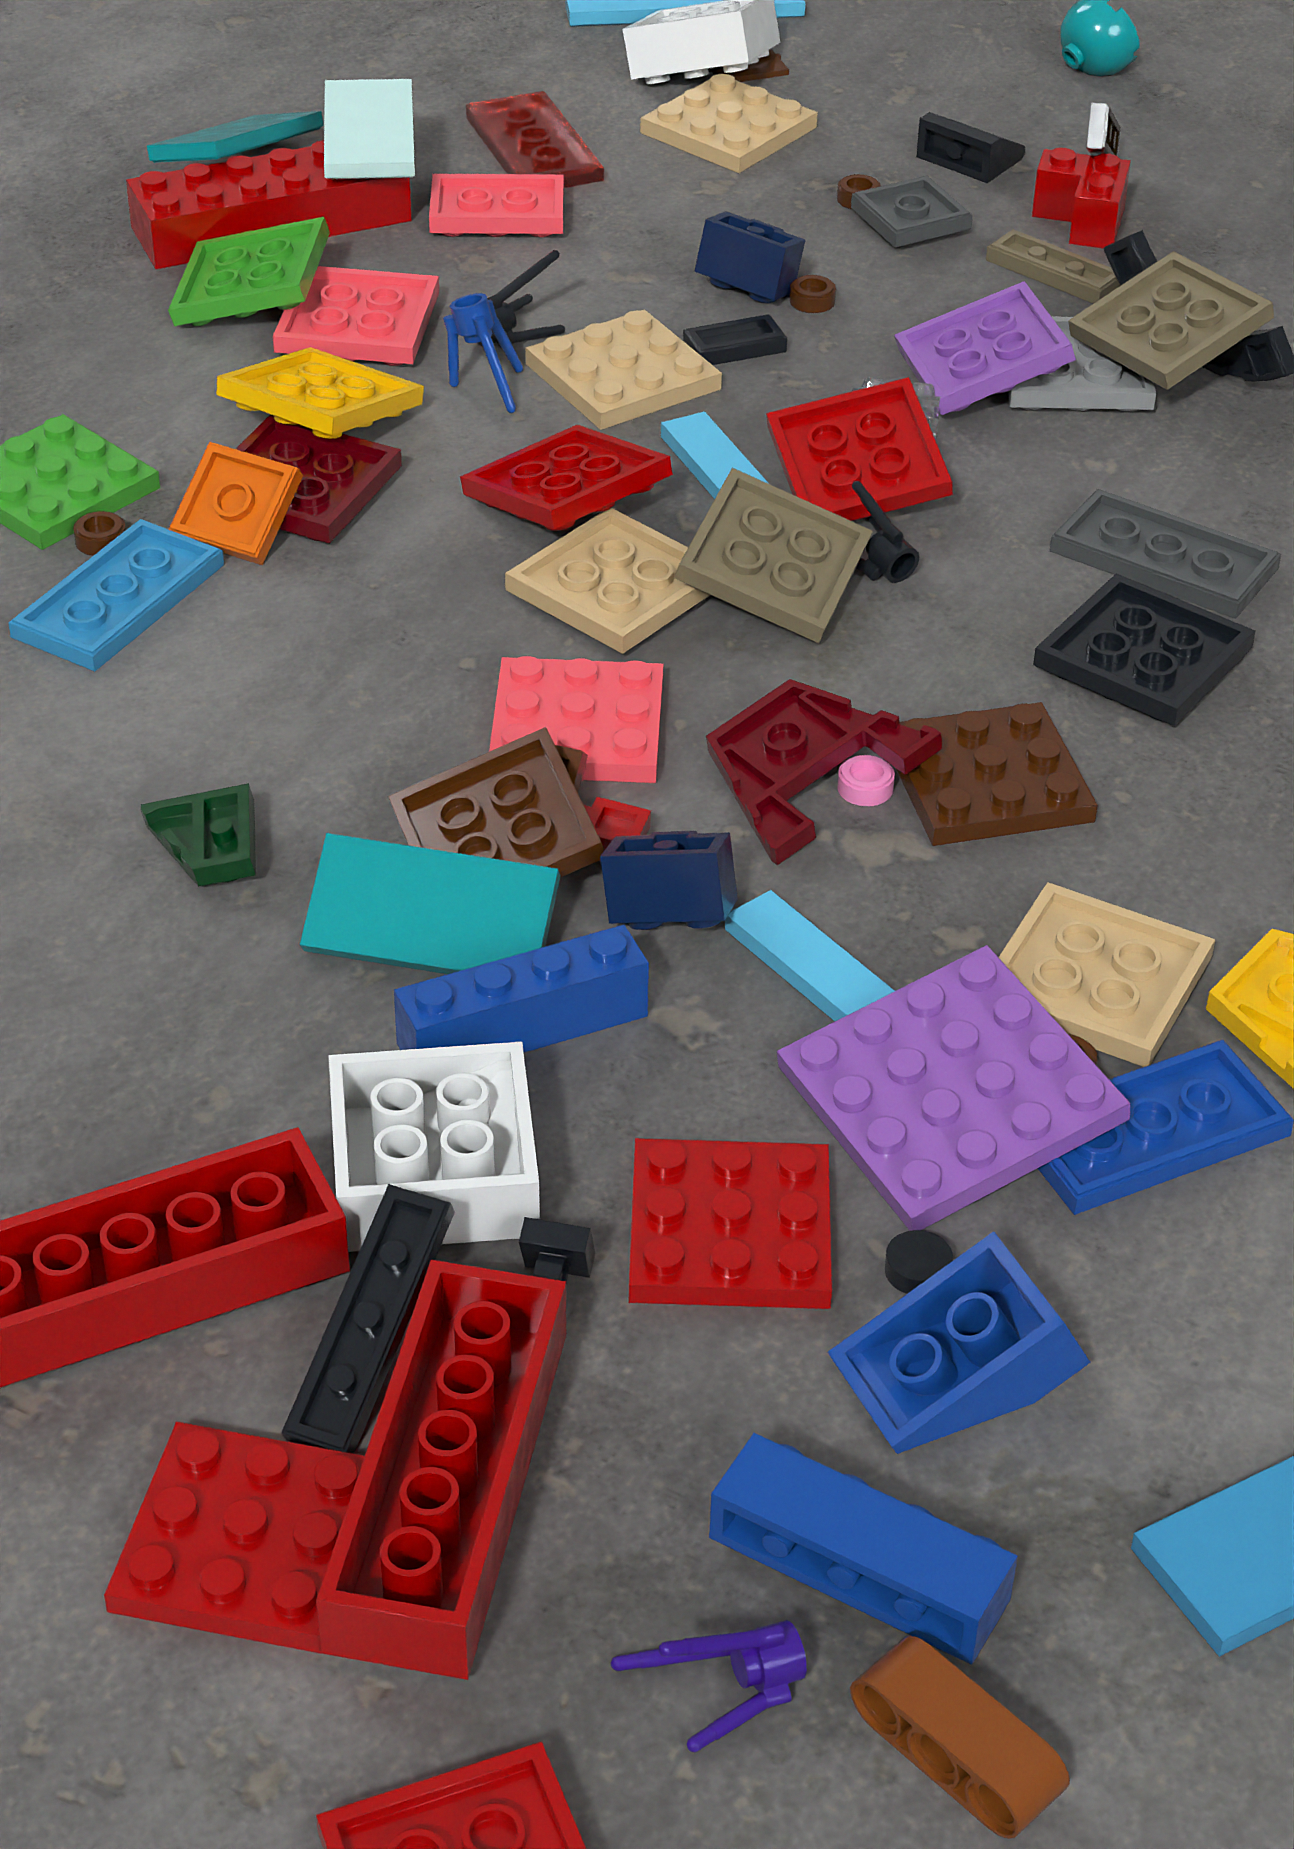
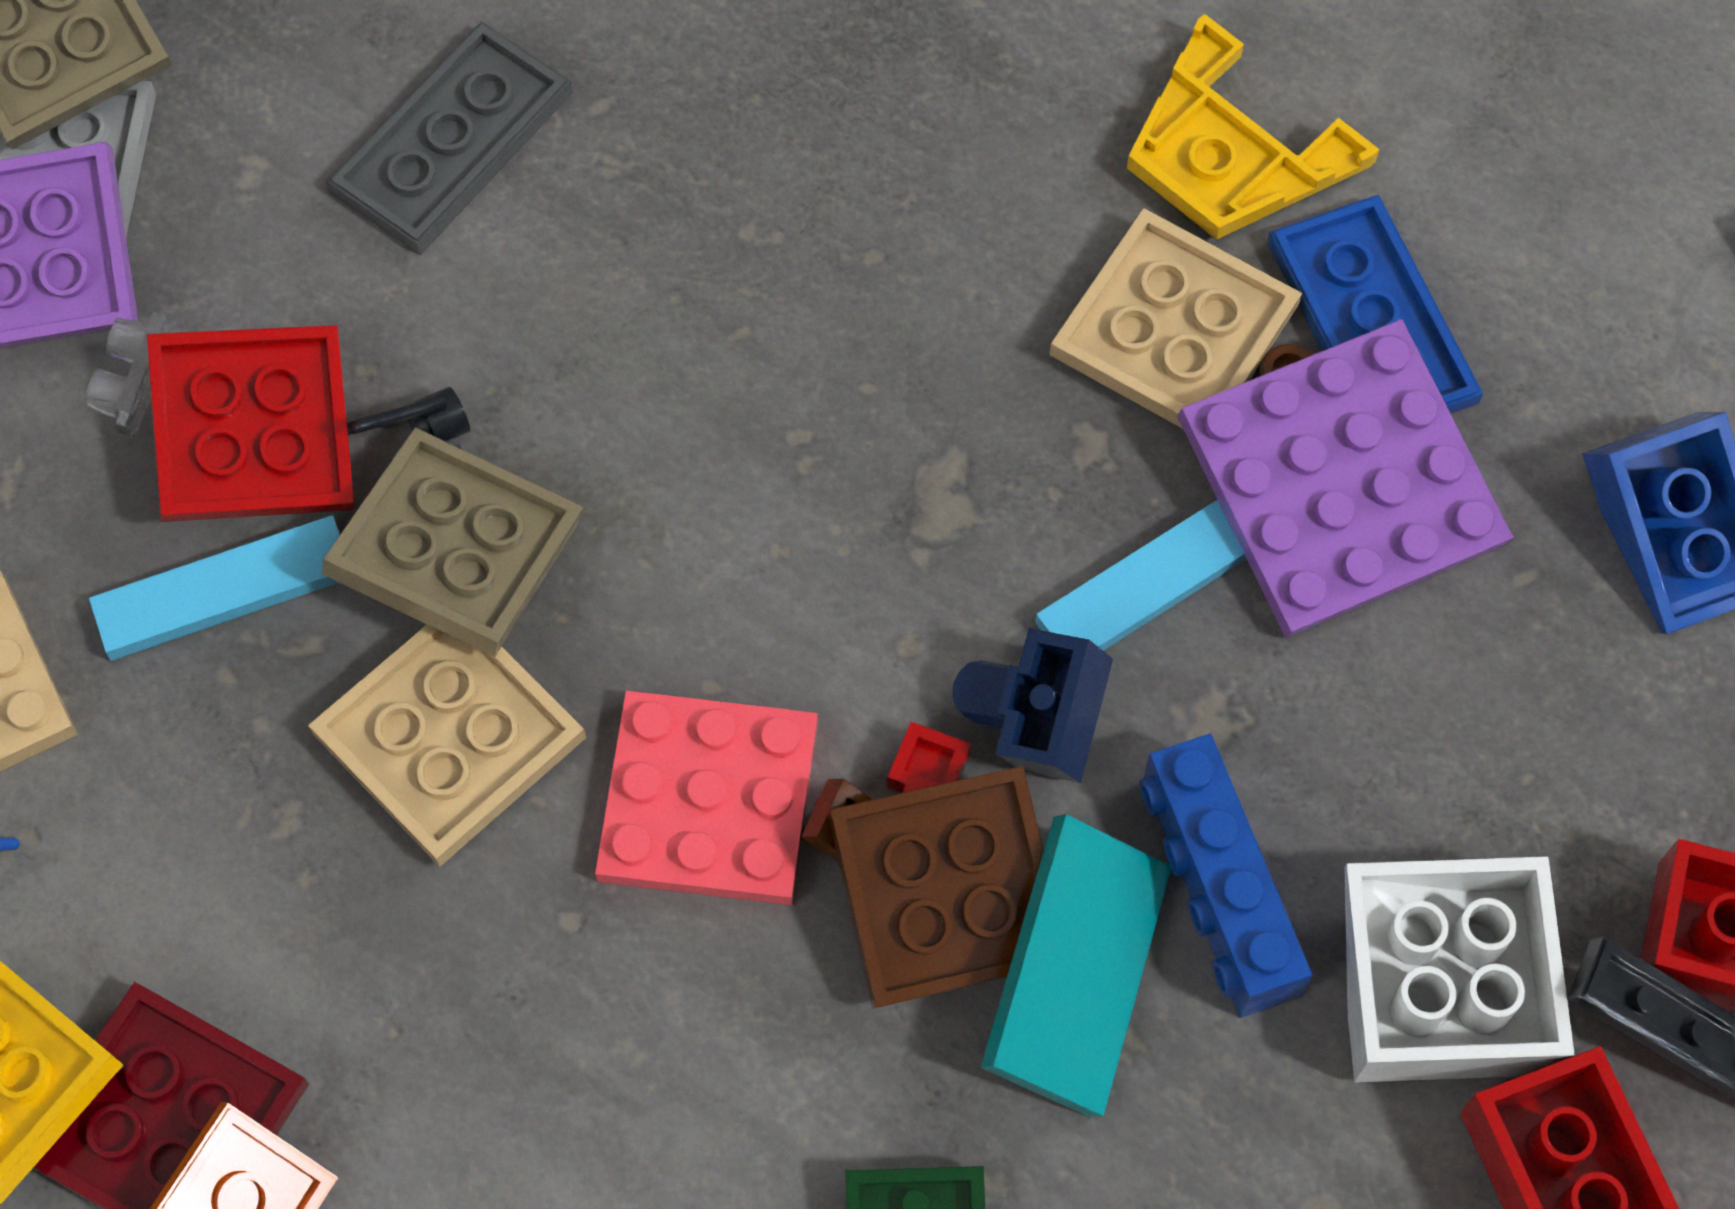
camera: 85 degrees left, 25 degrees up
(556, 1249) = (1577, 858): black tile -> none
(566, 477) = (237, 773): red plate -> none
(731, 1224) = (1508, 703): red plate -> none
(793, 741) = (801, 571): dark red wing -> none
(865, 780) = (842, 501): bright pink tile -> none
(915, 1258) = (1558, 541): black tile -> none
(997, 776) = (838, 378): reddish brown plate -> none
(1144, 649) = (645, 187): black plate -> none

